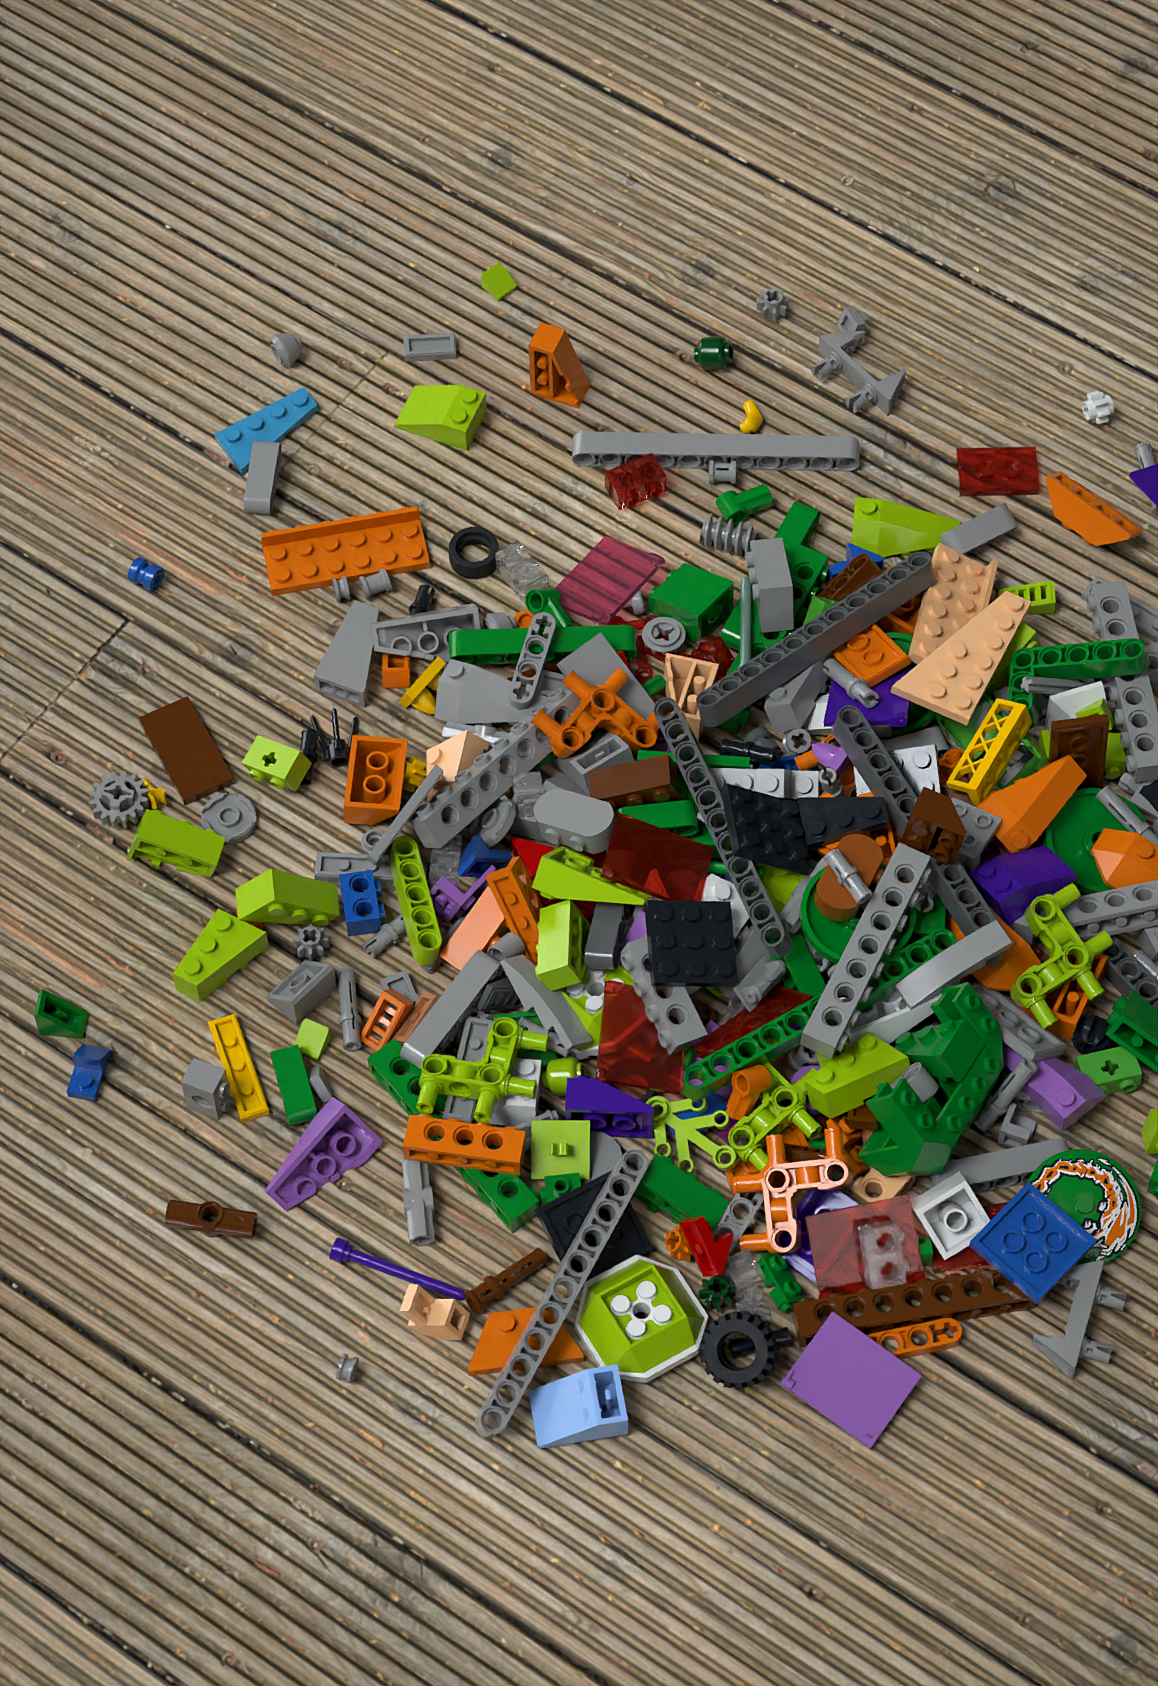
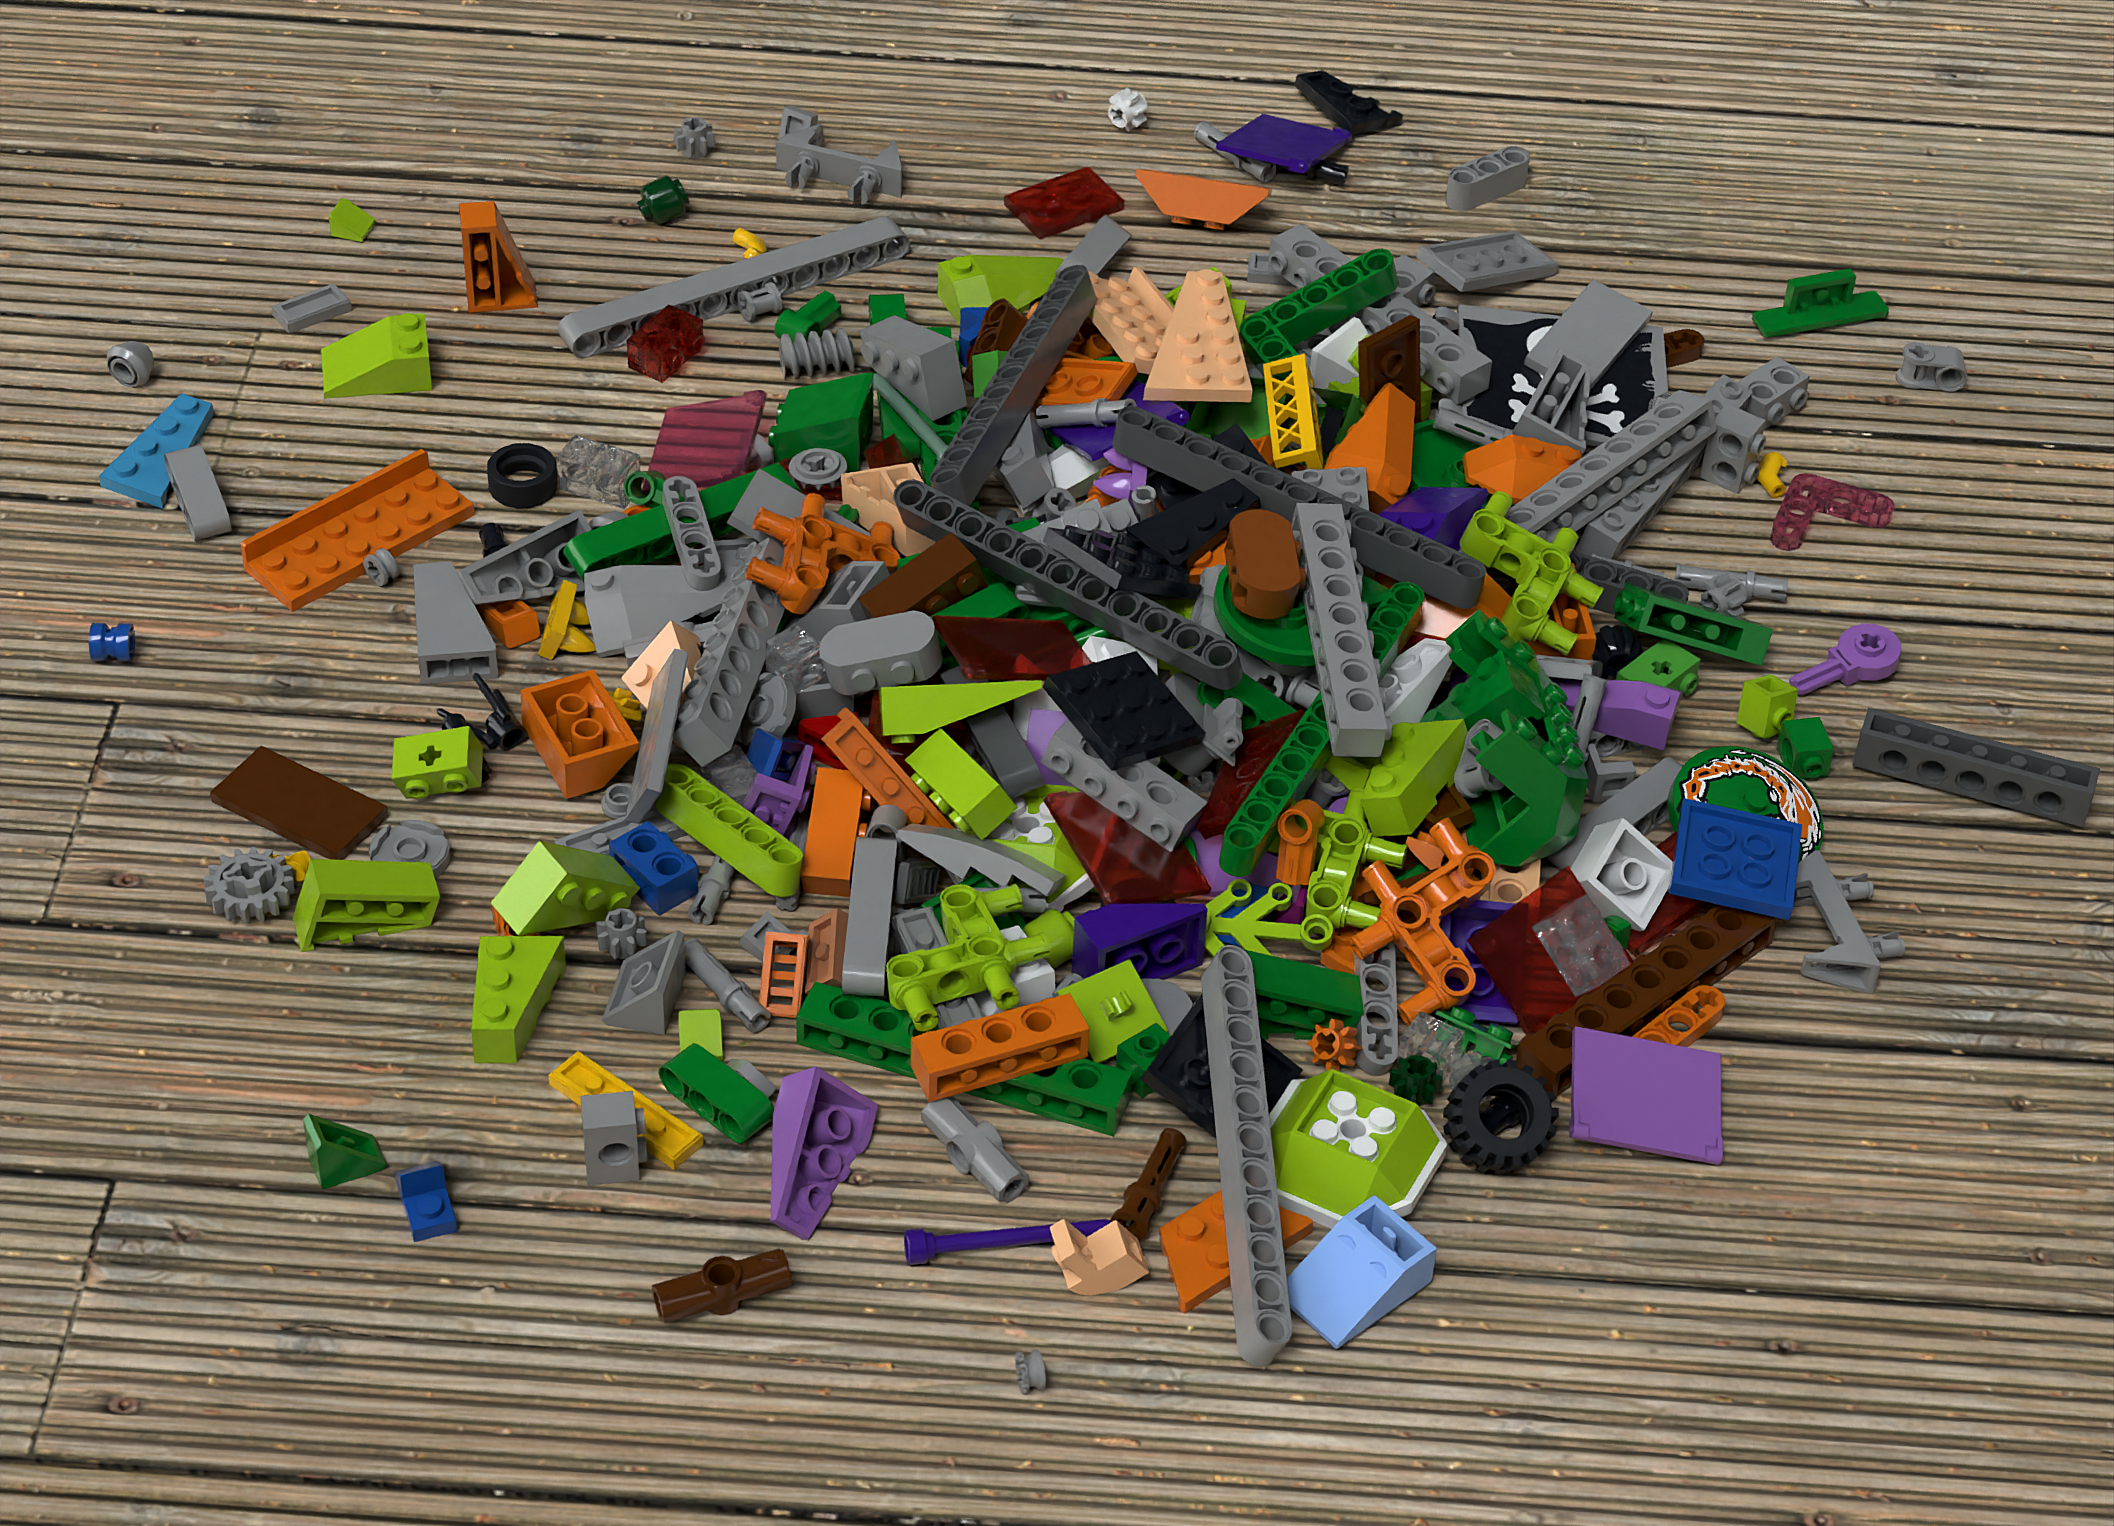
camera: 35 degrees left, 15 degrees down
(375, 583) = (421, 547): light grey bush -> none
(708, 1251) = (1375, 1027): red slope -> none
(848, 876) = (1271, 550): light grey pin -> none
(935, 827) = (1327, 468): reddish brown slope -> none
(953, 964) = (1438, 611): light grey slope -> none
(1048, 685) = (1303, 337): light grey axle -> none

